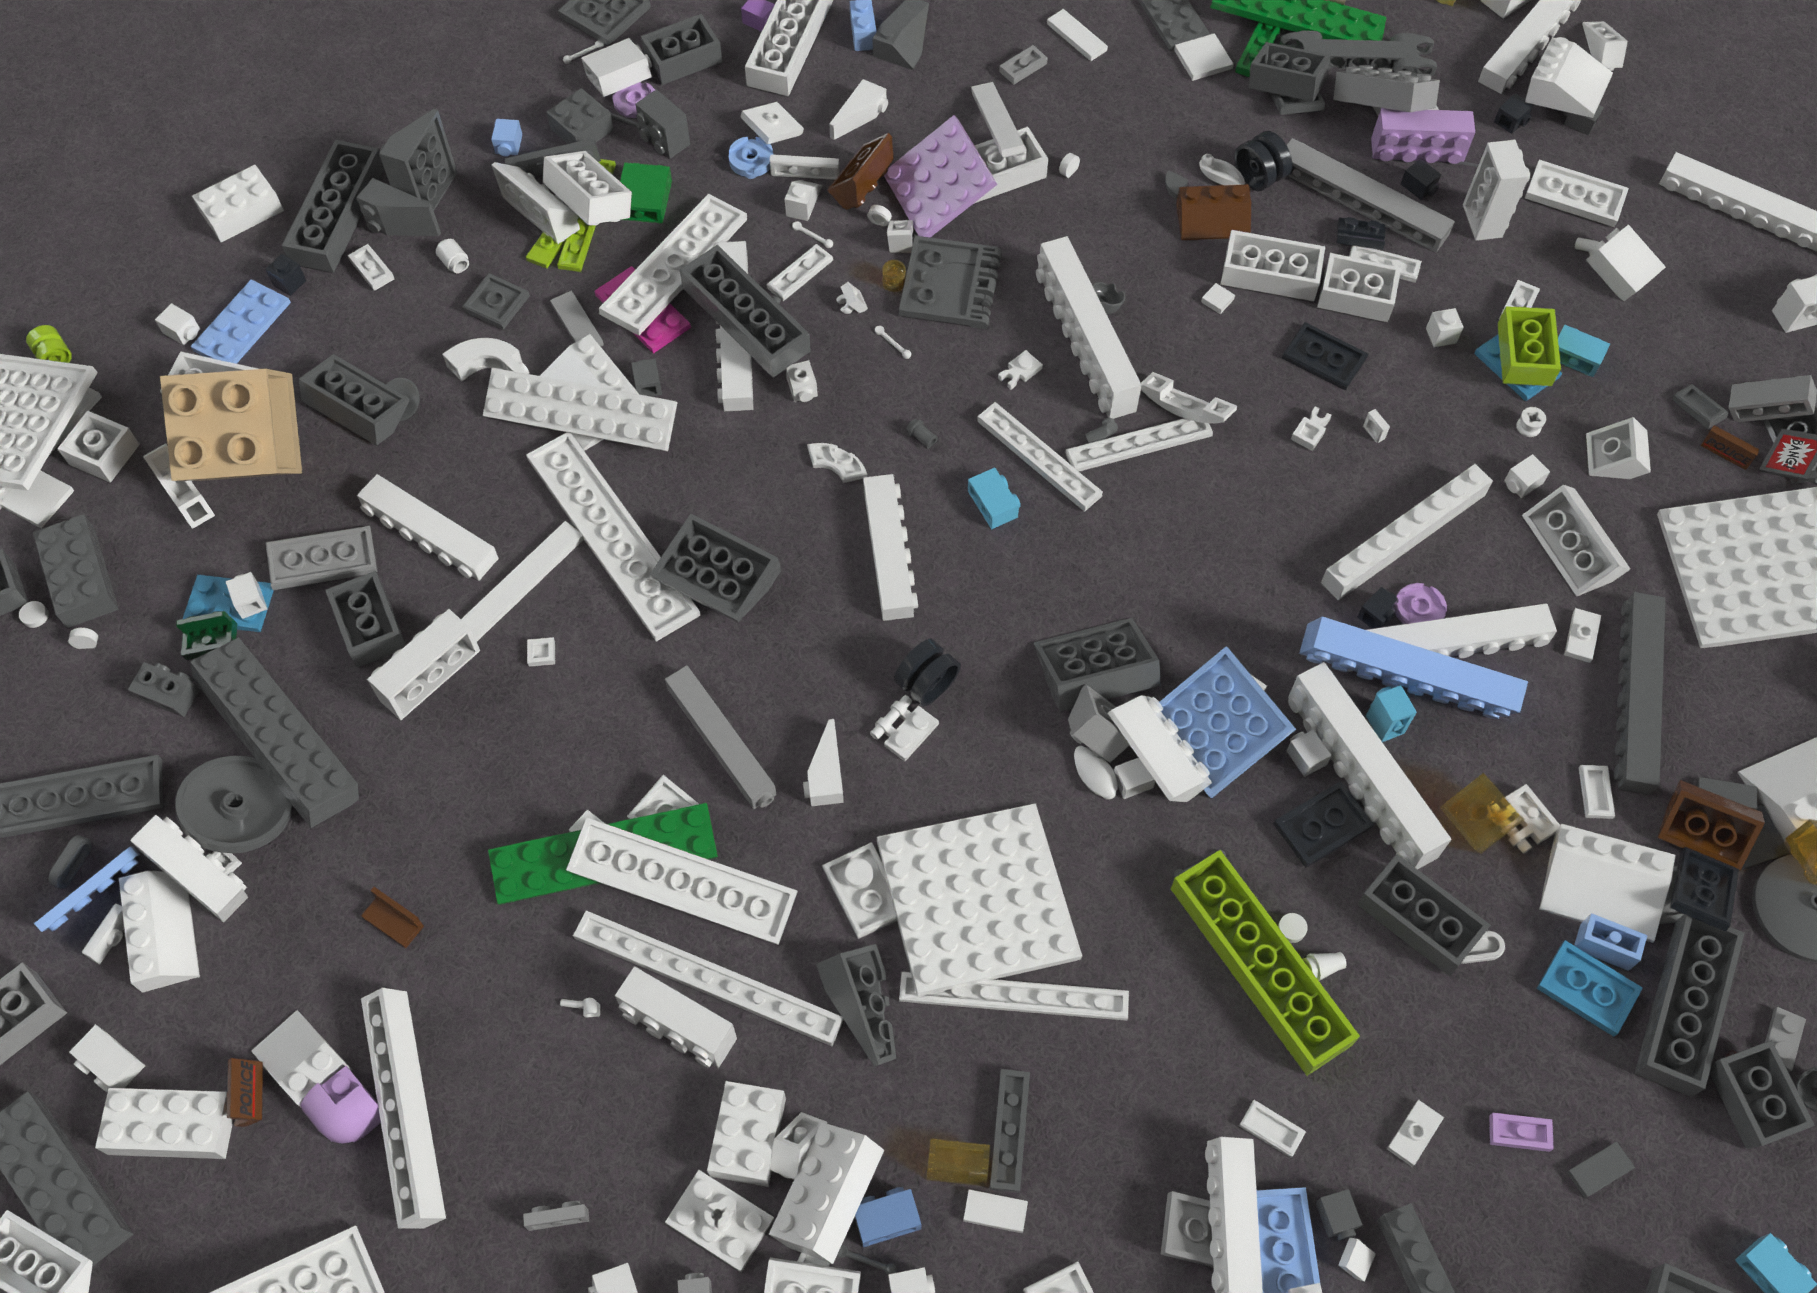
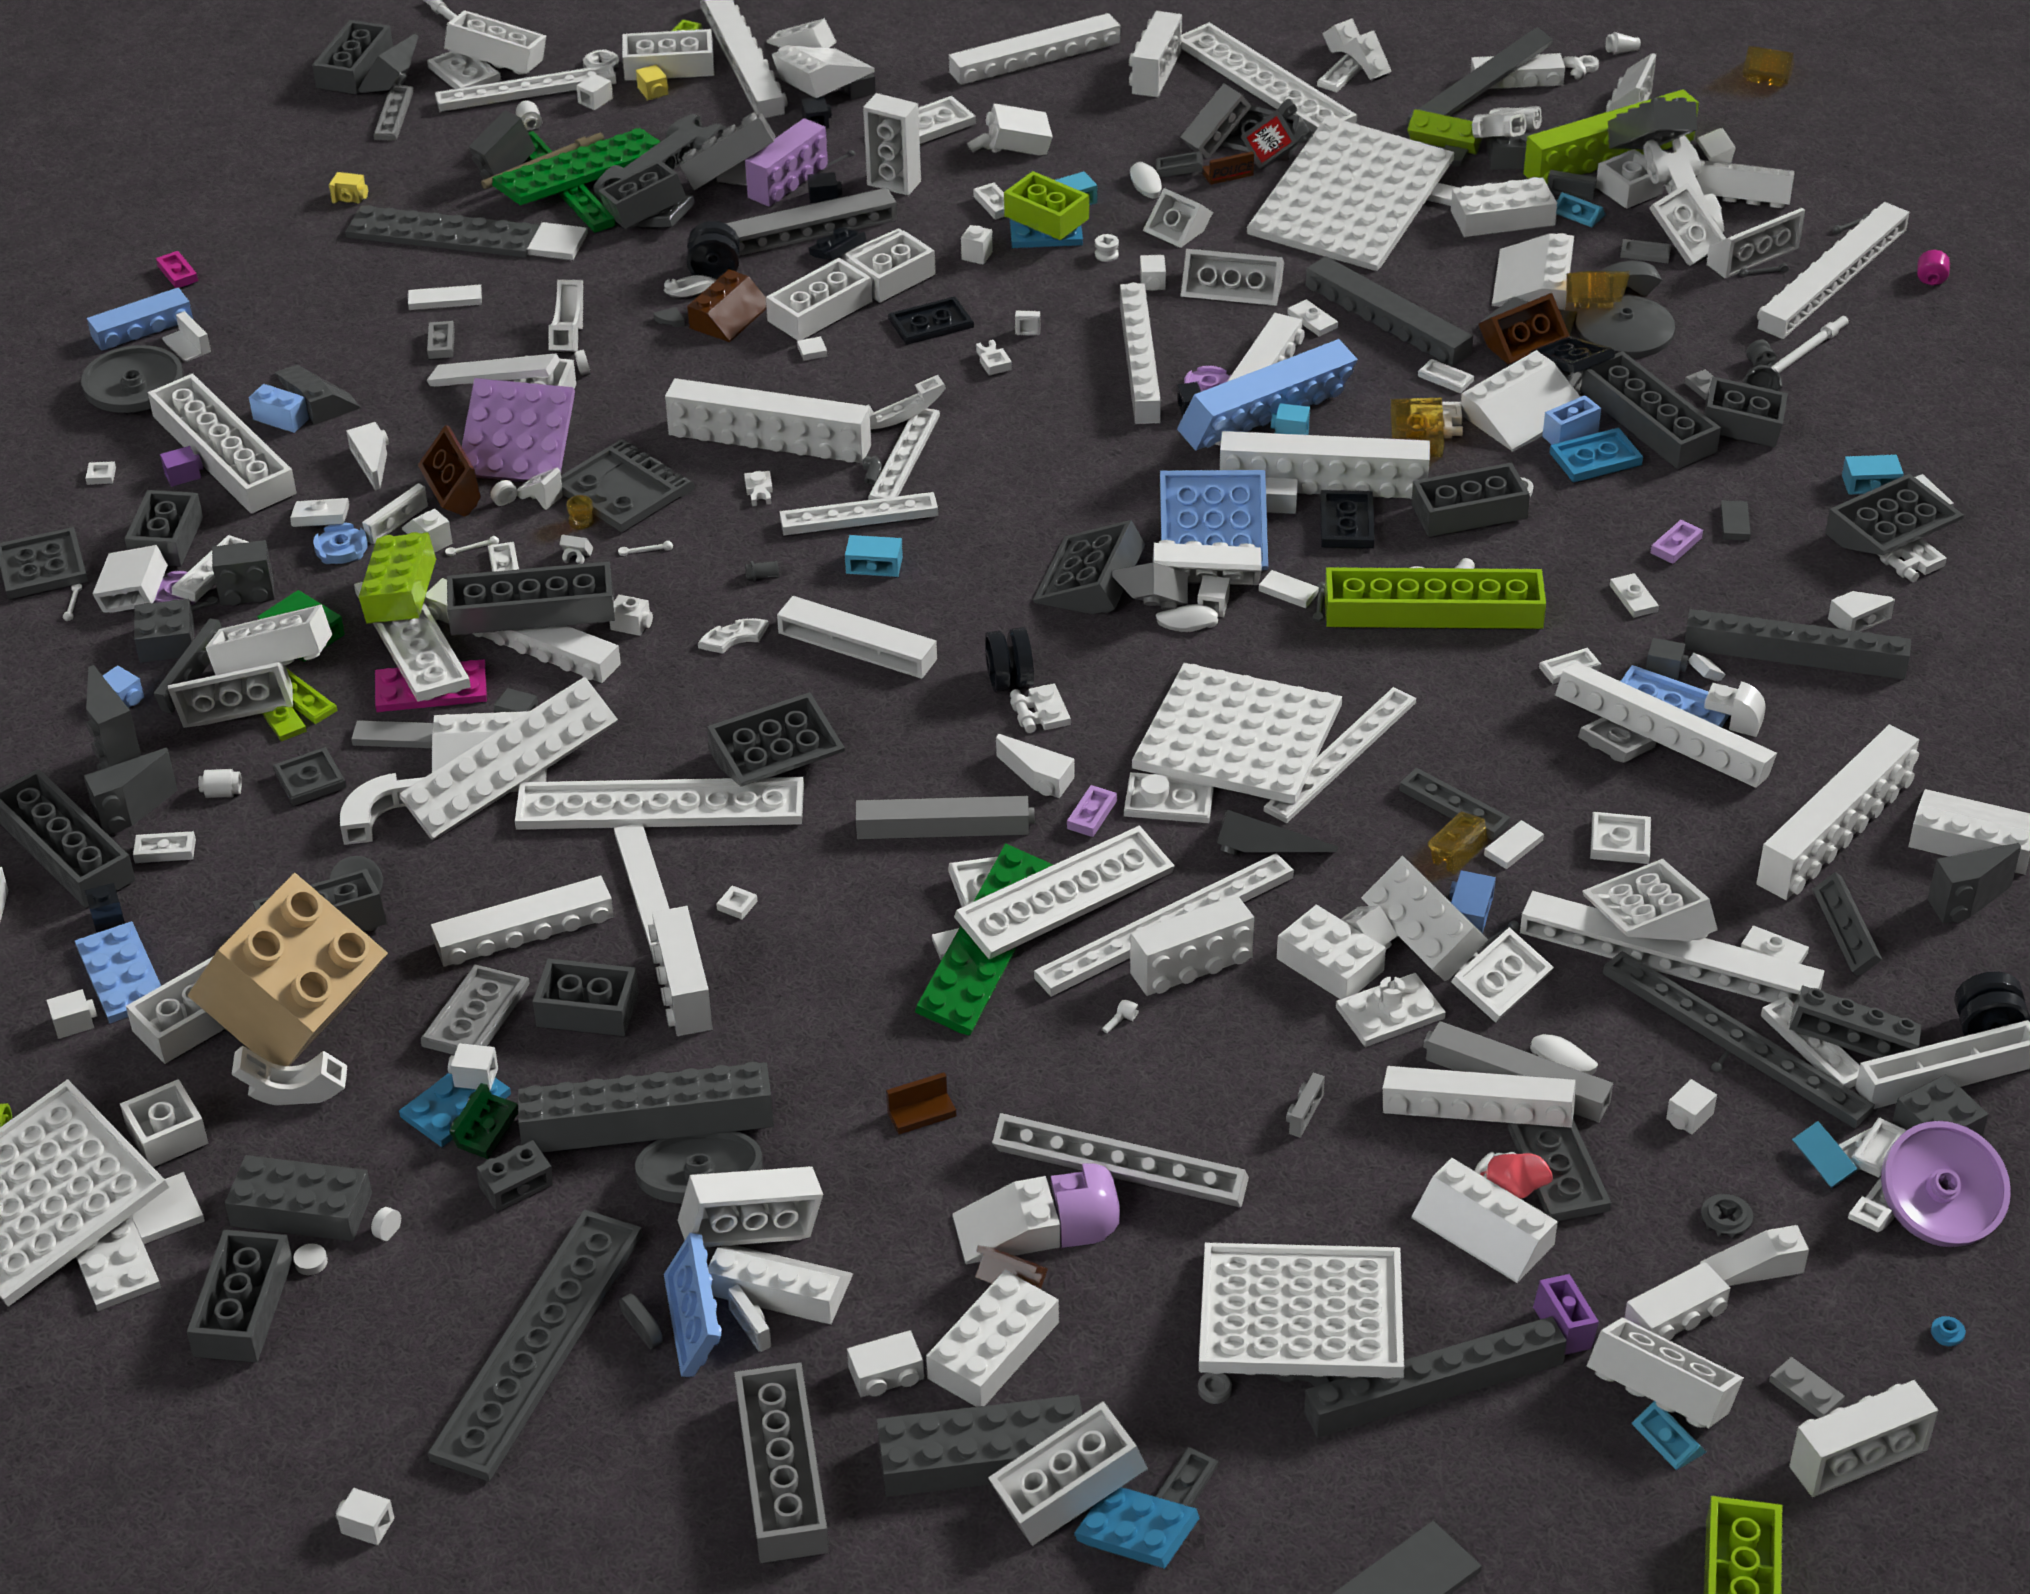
camera: 55 degrees left, 20 degrees down
(687, 100) = (201, 576): none -> white tile
(715, 215) = (397, 577): none -> lime brick
(804, 841) = (1091, 811): none -> lavender plate
(1111, 122) = (567, 316): none -> white arch
(1196, 830) = (1288, 589): none -> white tile
(1654, 394) = (1146, 180): none -> white arm

